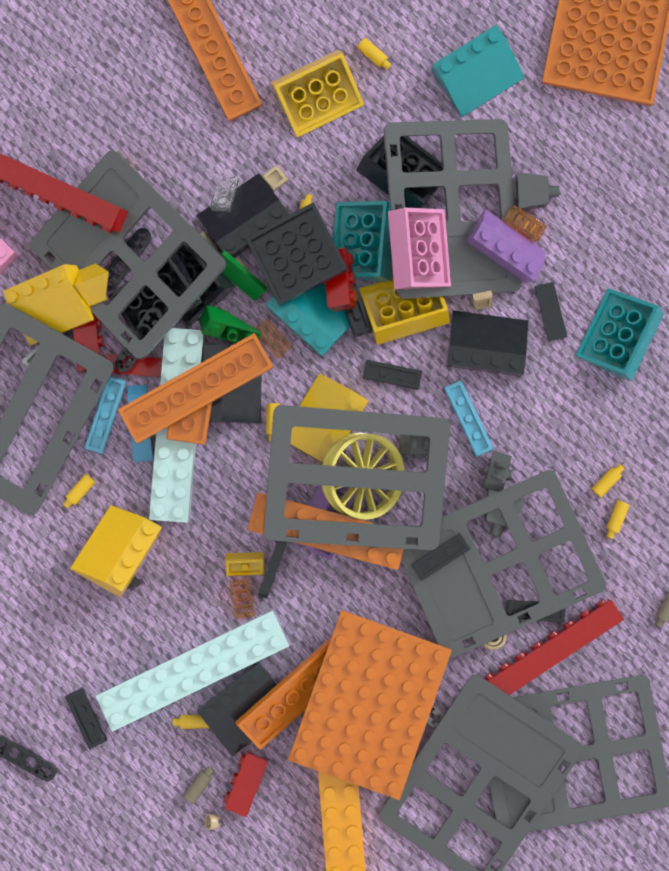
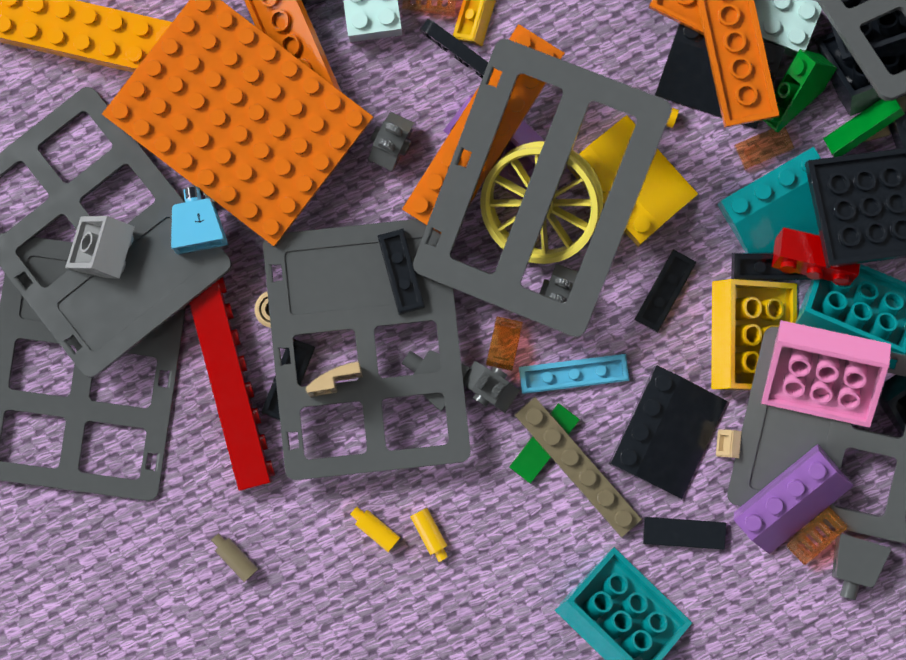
camera: 115 degrees right, 0 degrees up
(351, 593) = (391, 141): none -> dark grey hinge
(454, 708) = (196, 224): none -> medium azure torso
(464, 471) = (504, 343): none -> clear orange tile
(491, 769) = (100, 246): none -> light grey slope
(521, 423) = (533, 456): none -> green tile
(530, 396) = (577, 467): none -> dark tan plate
(535, 580) = (326, 382): none -> tan slope

